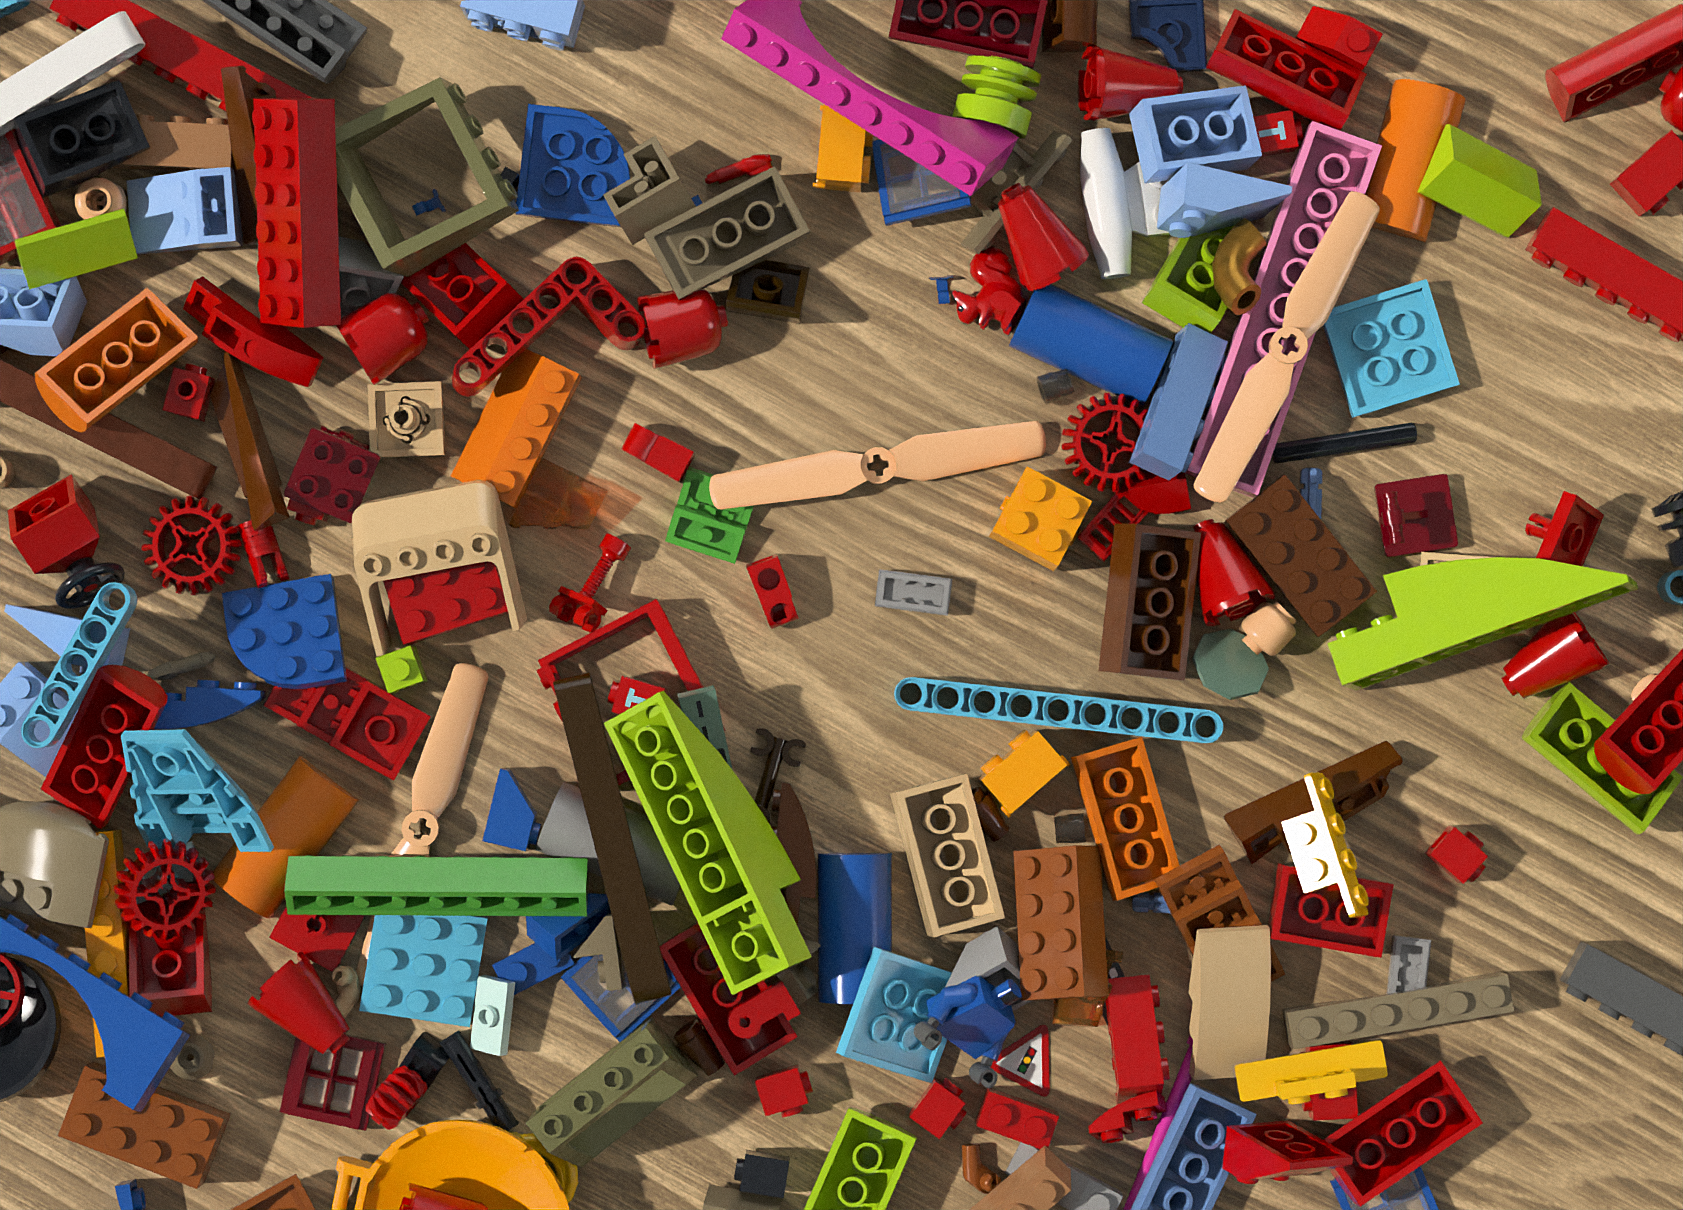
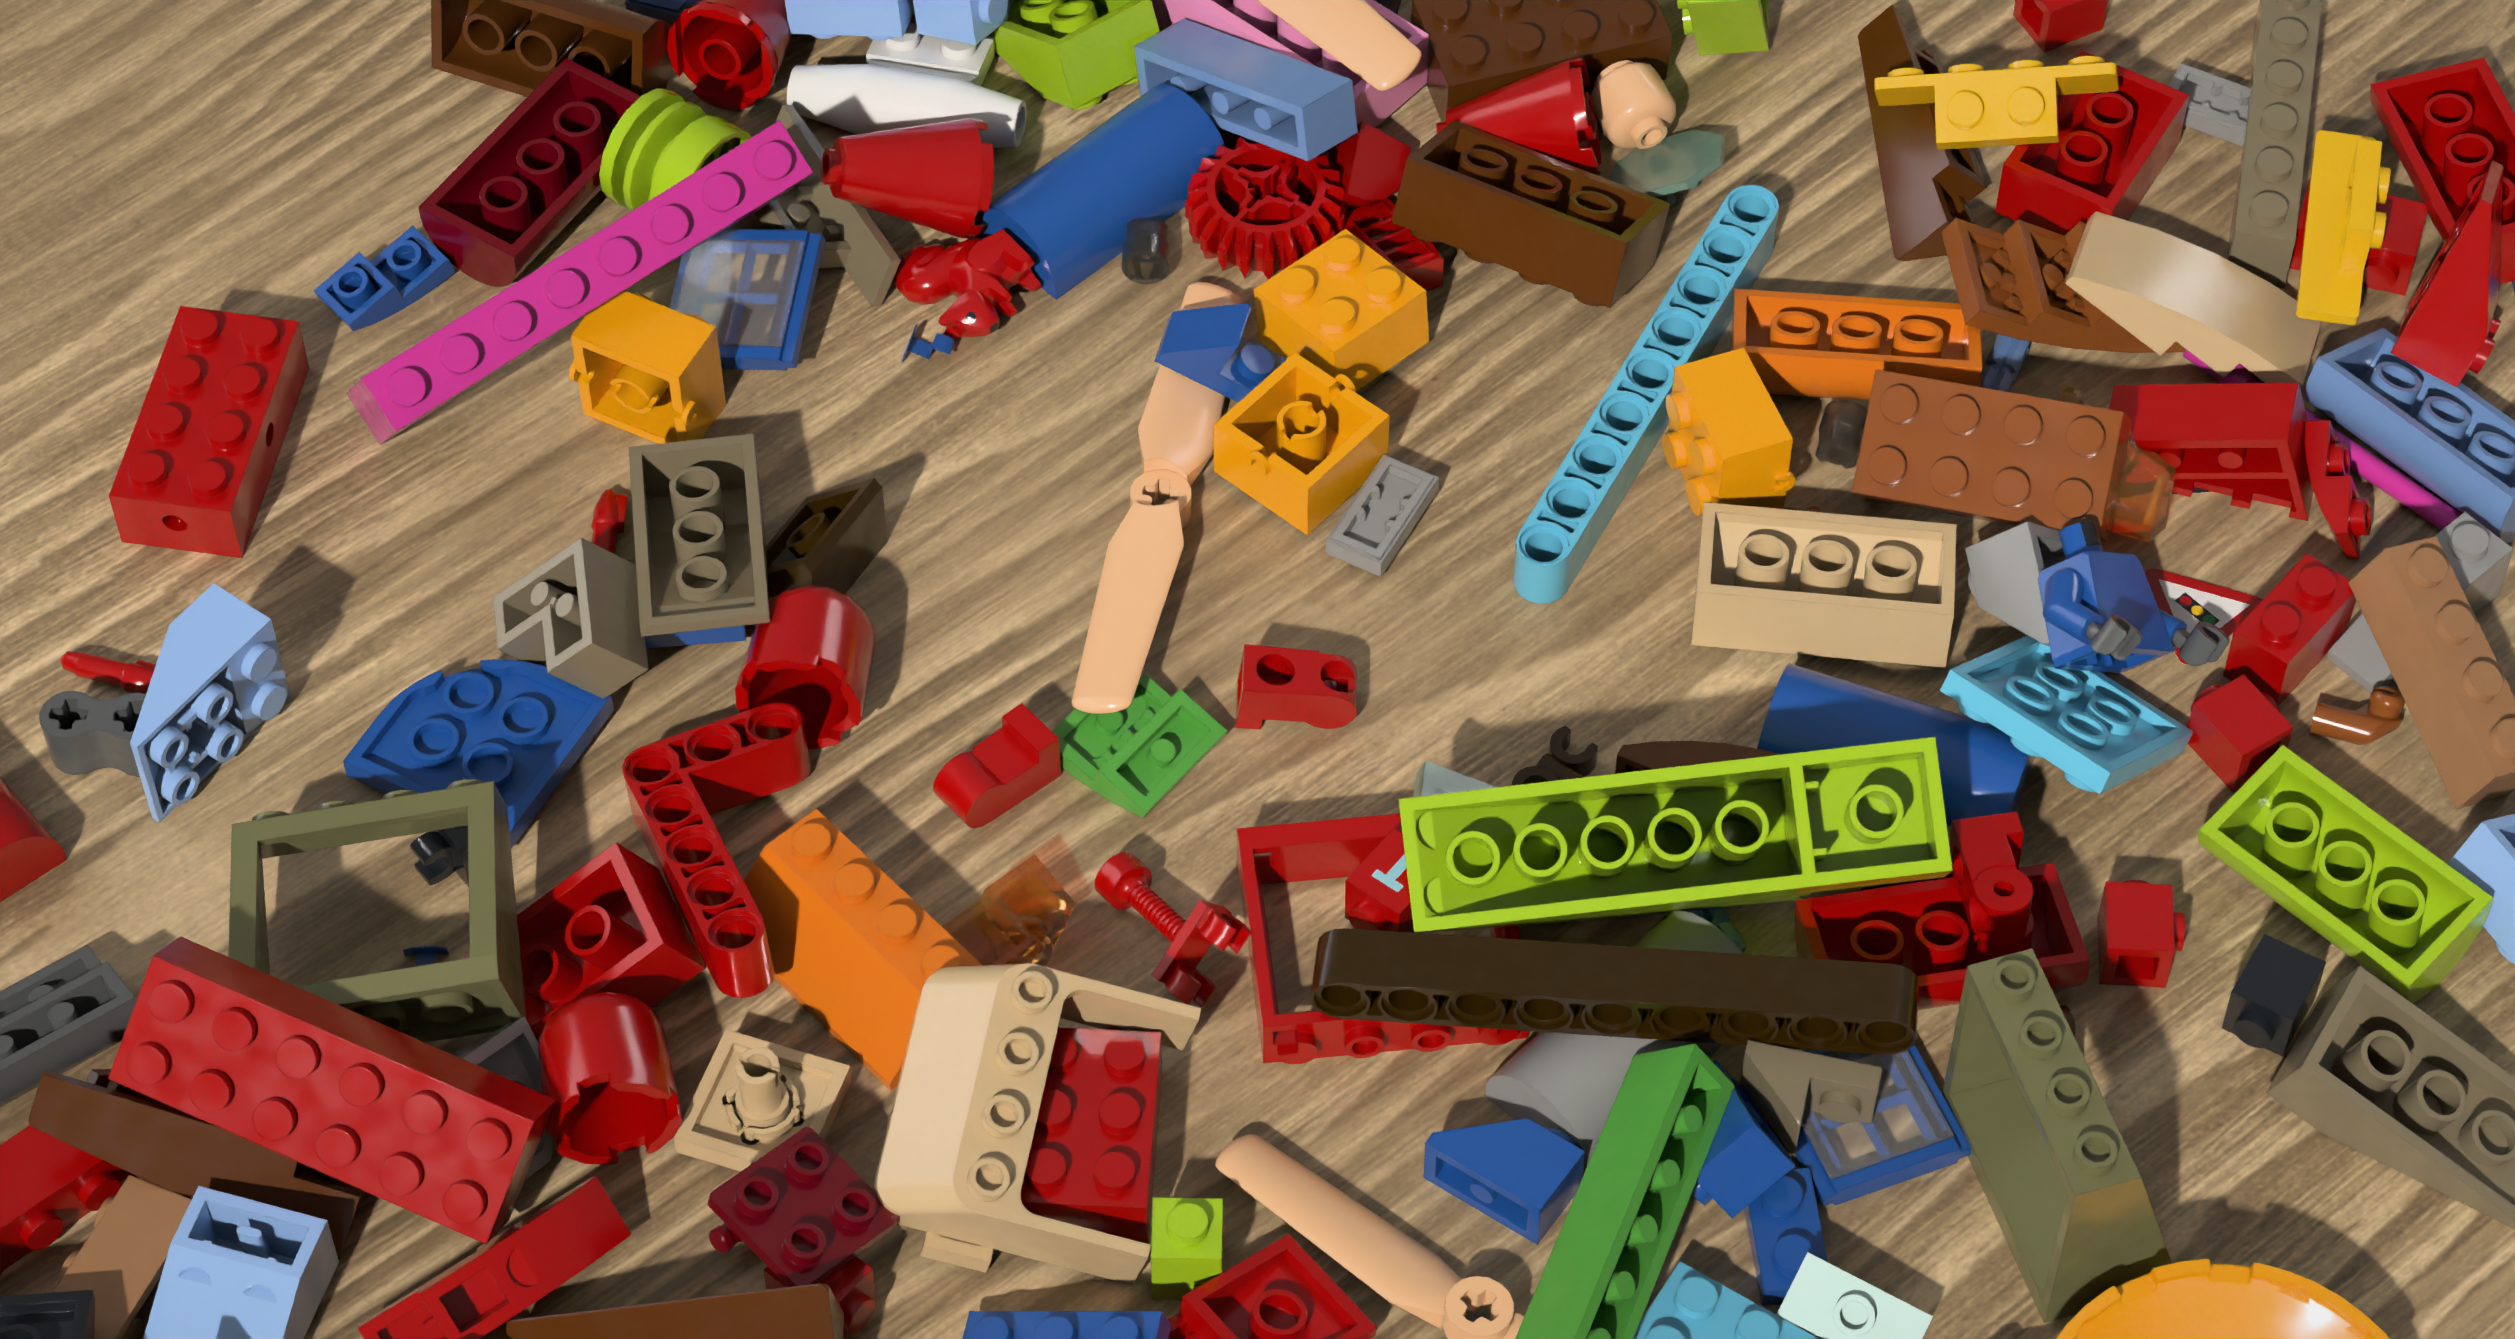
camera: 70 degrees left, 35 degrees down
(935, 532) = (1300, 442): none -> light orange brick
(983, 462) = (1212, 351): none -> blue slope

